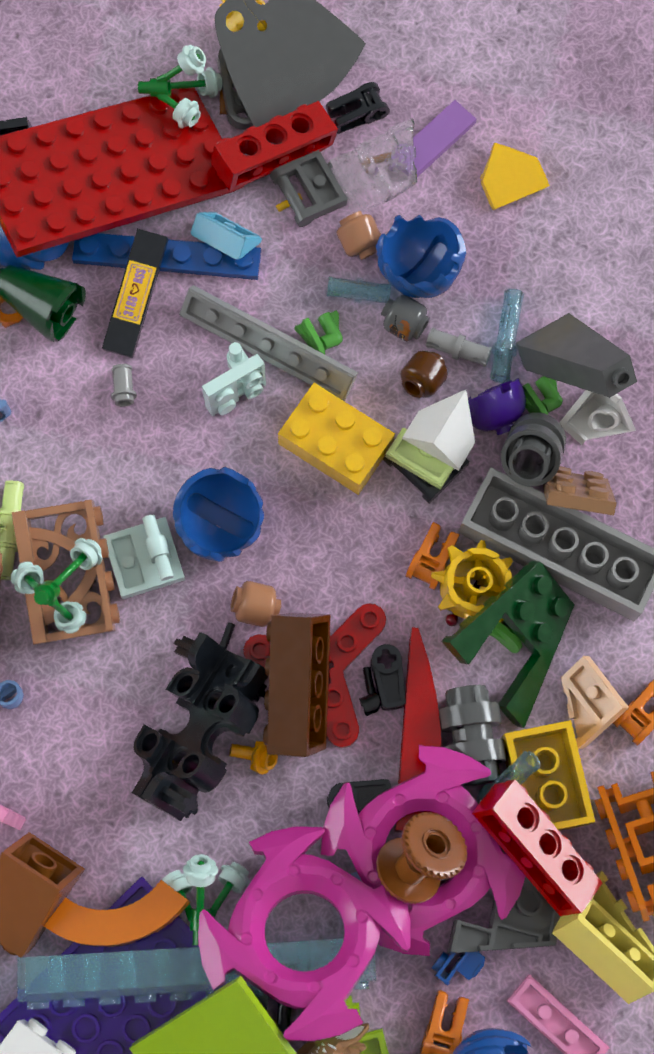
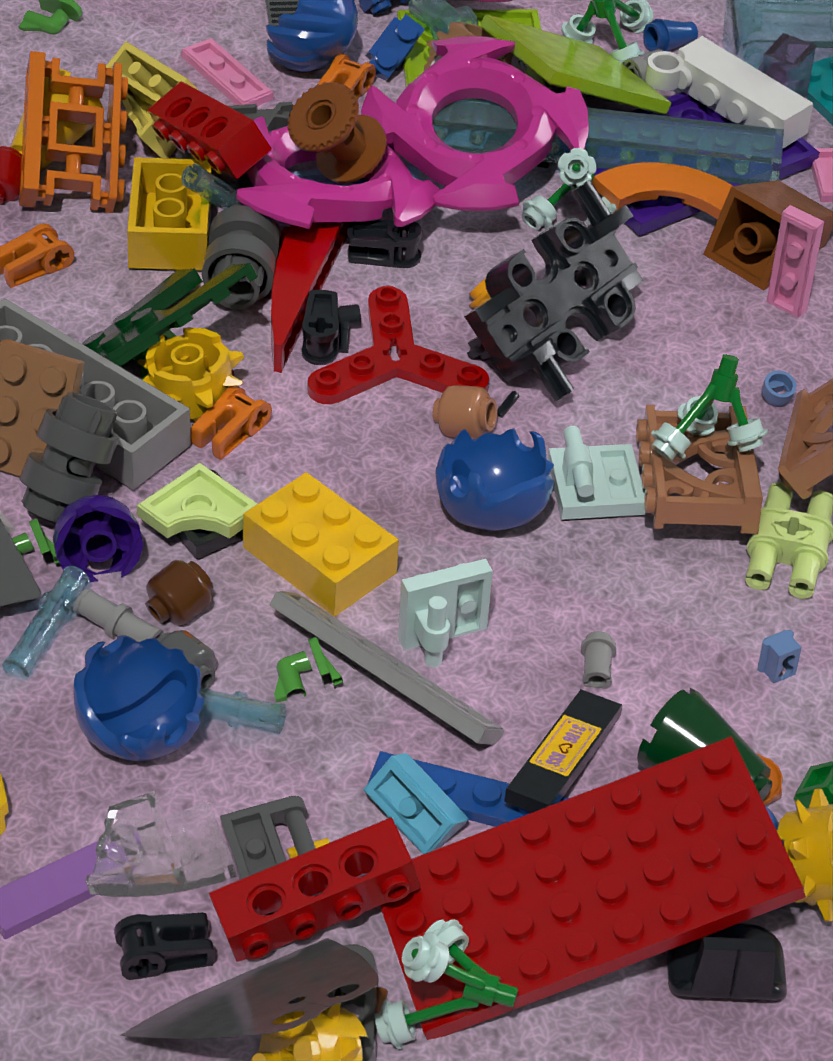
camera: 170 degrees left, 30 degrees down
(297, 684) = (434, 304): reddish brown brick -> none
(358, 235) = (216, 768): nougat head -> none
(444, 430) = (191, 494): white slope -> none
(591, 700) = (90, 268): light nougat wing -> none

